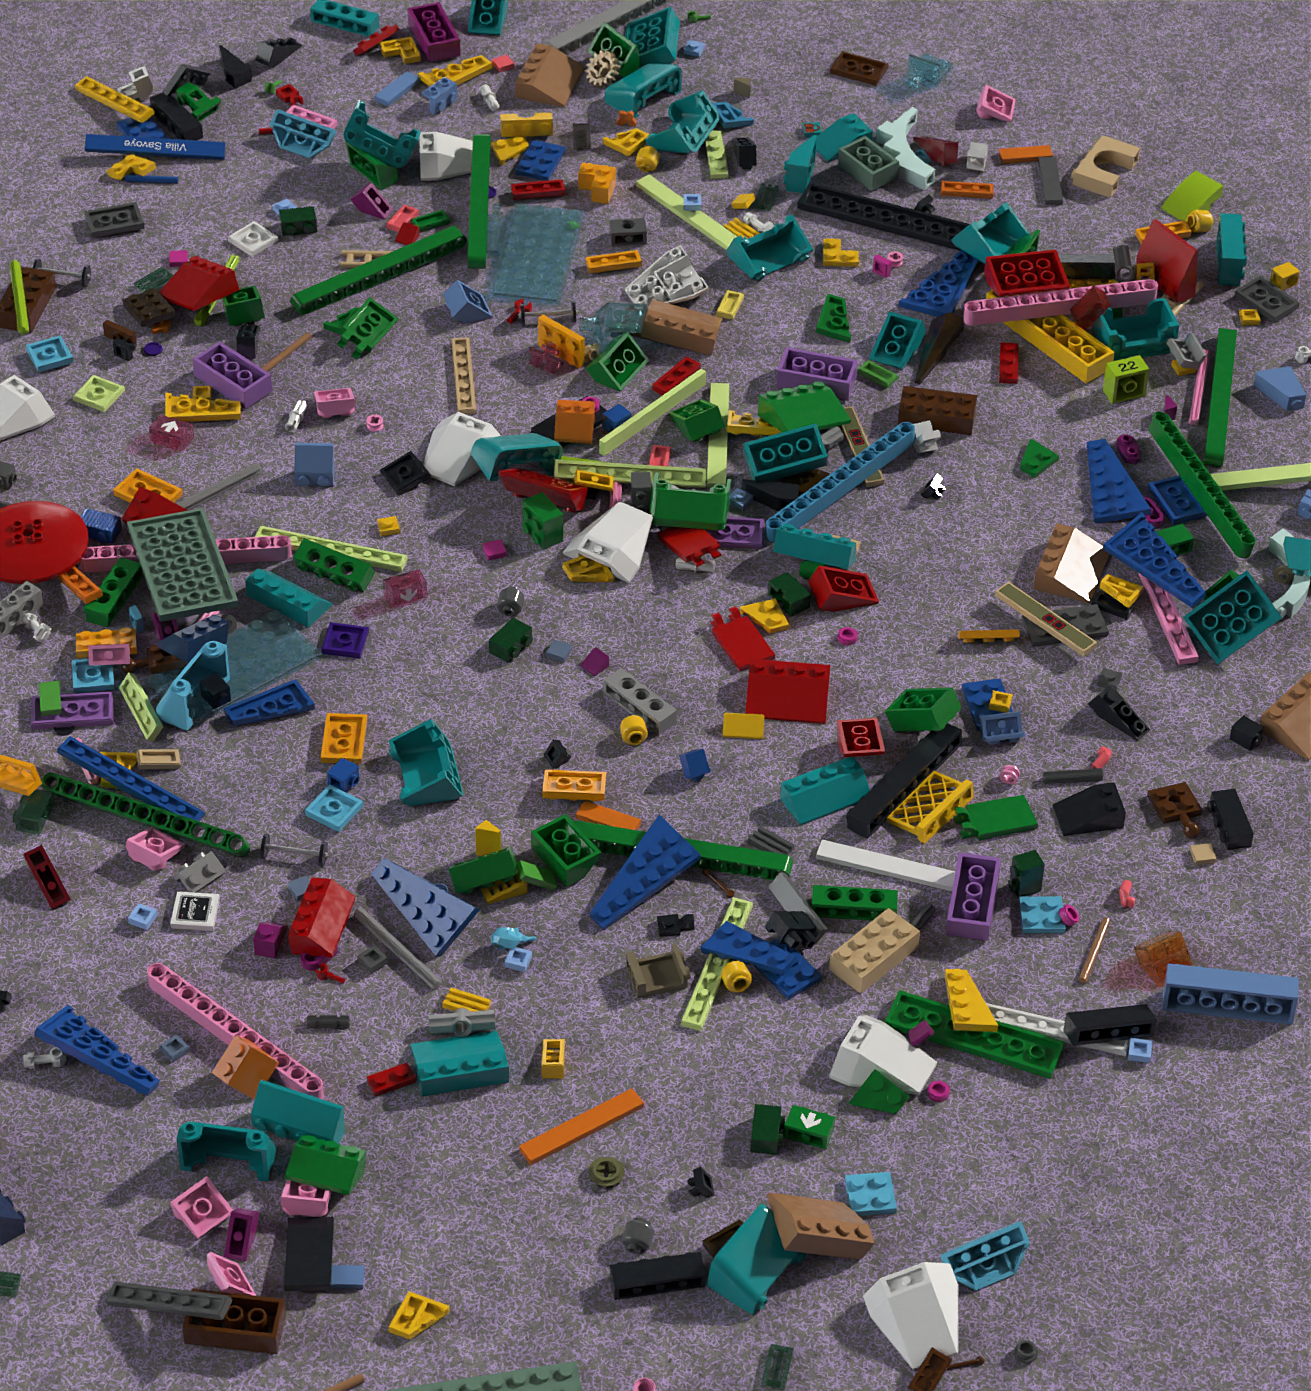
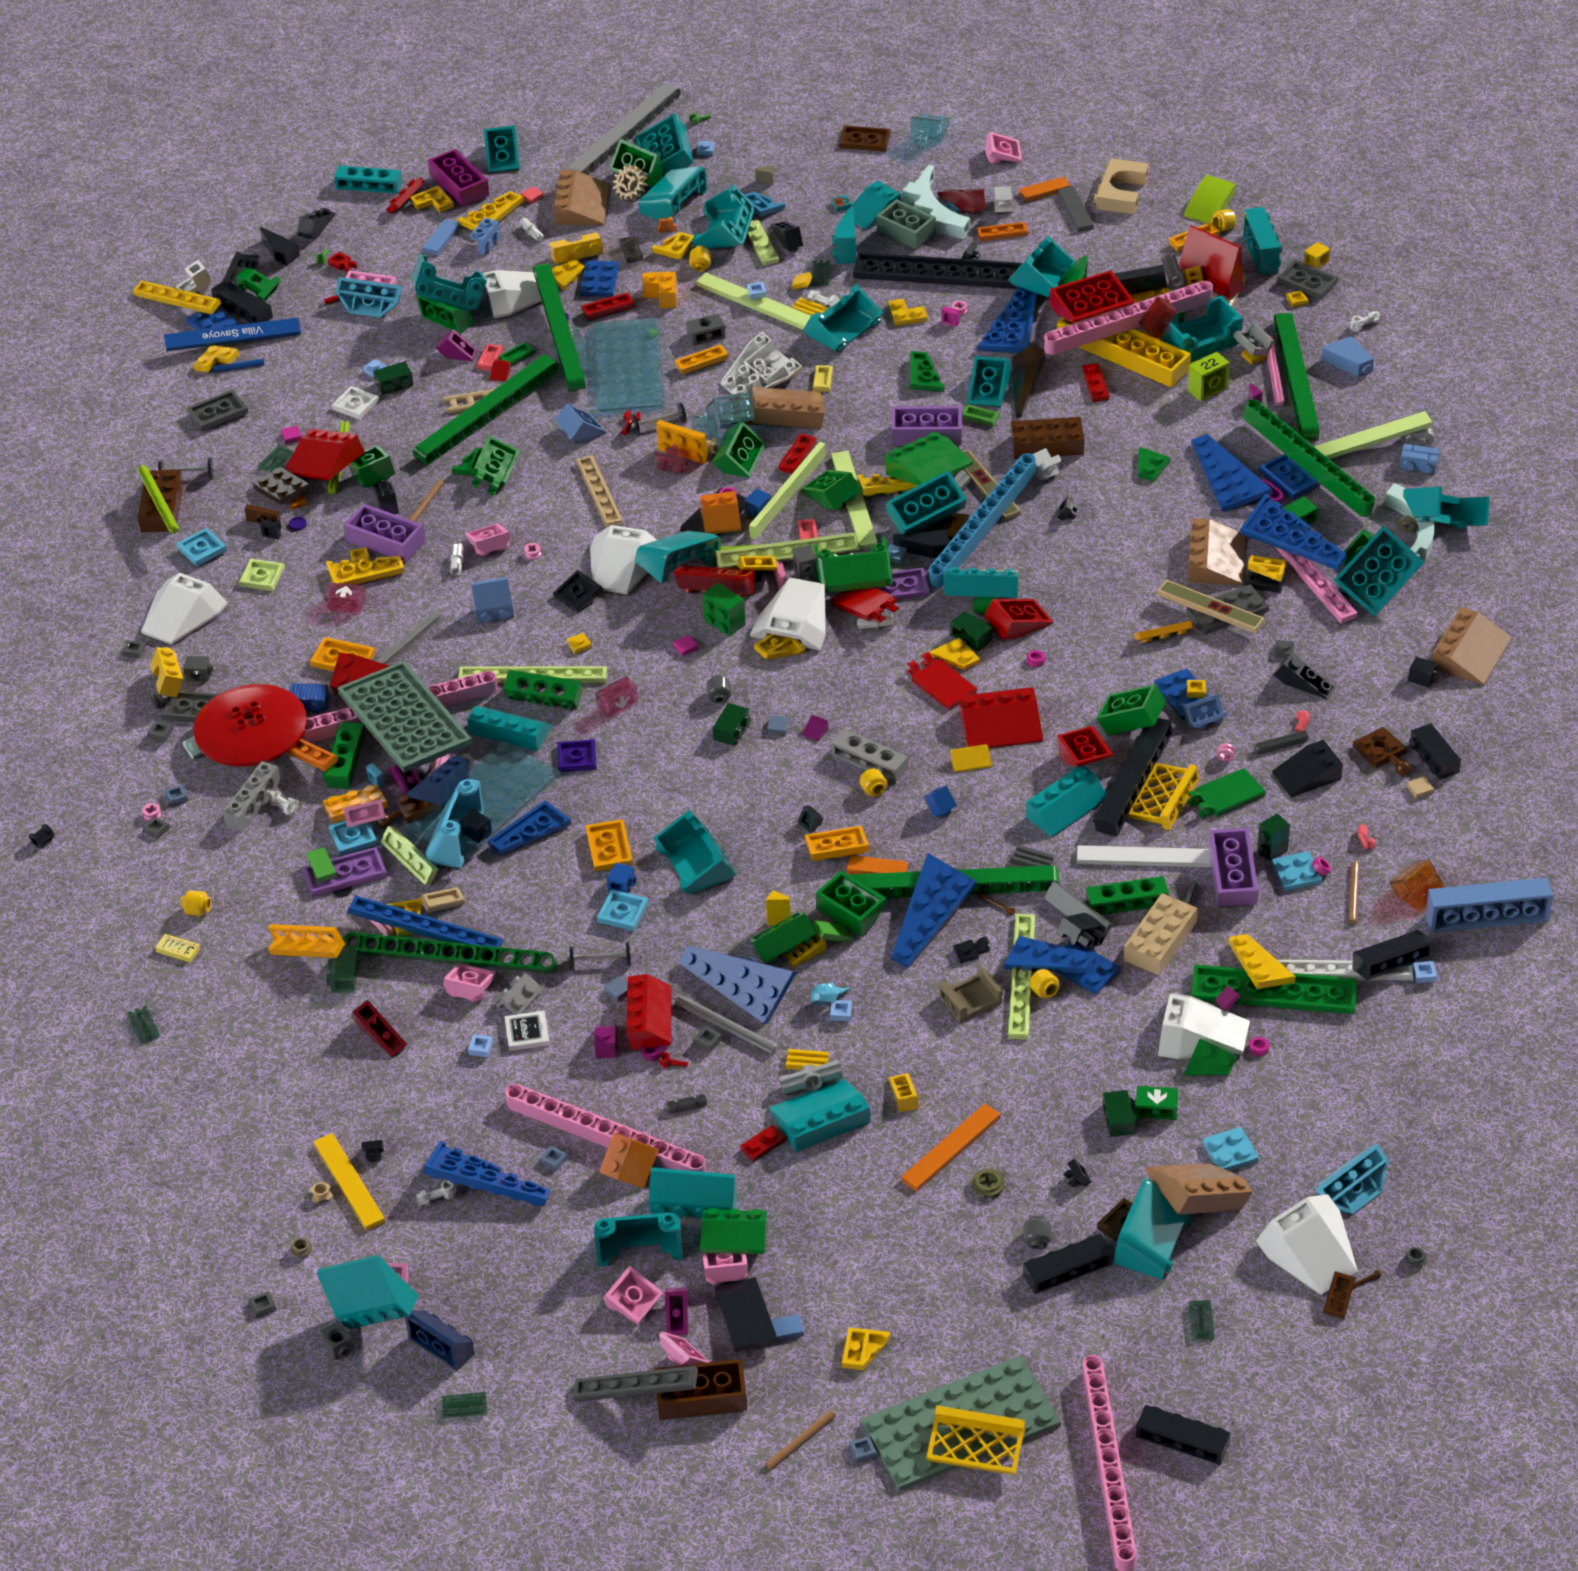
camera: 10 degrees left, 0 degrees up
(1128, 449) = (1230, 439): magenta plate -> none

